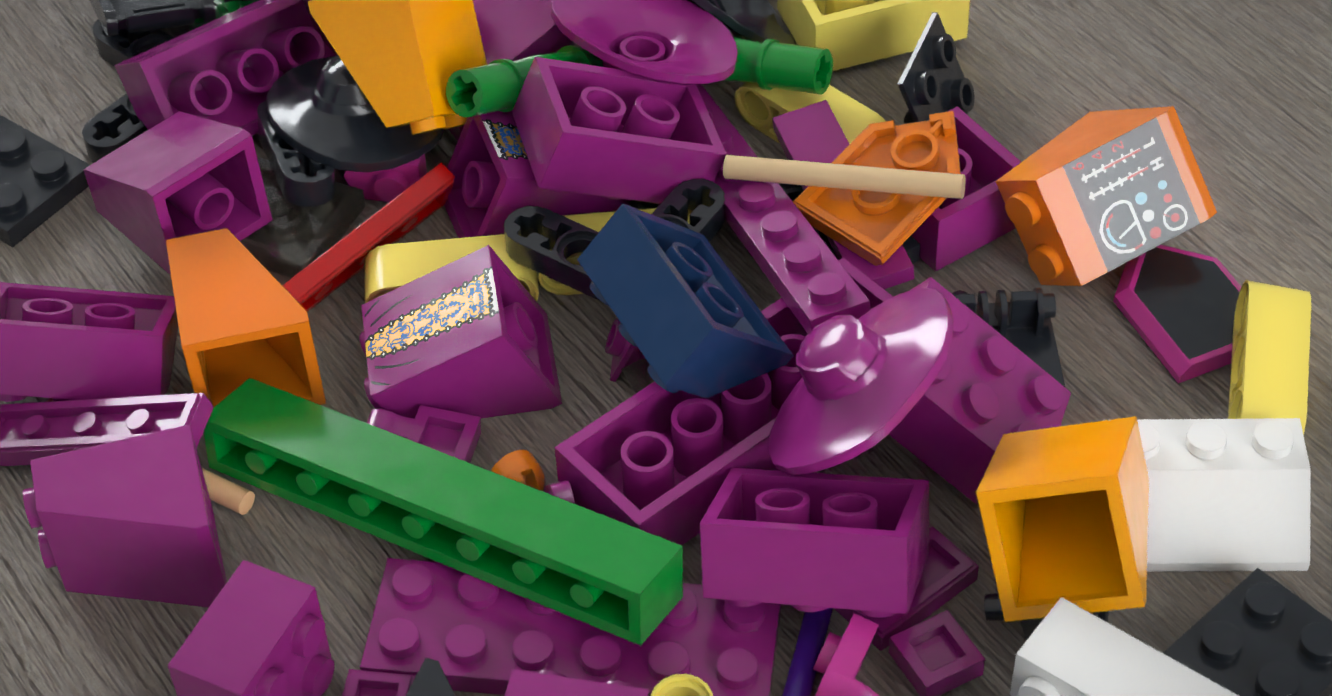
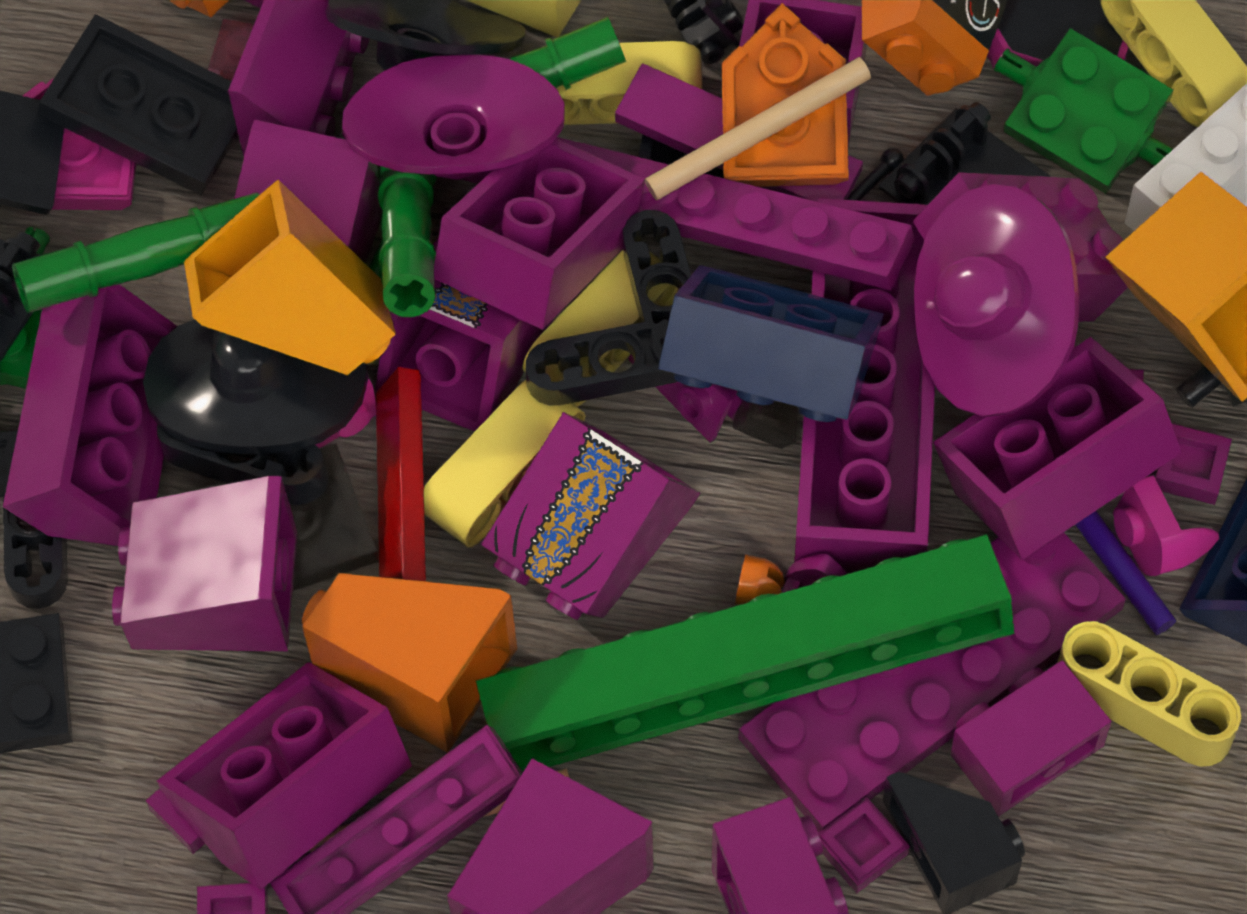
camera: 45 degrees left, 15 degrees up
(435, 428) = (650, 603): magenta plate -> none
(1145, 360) = (1086, 110): none -> green plate

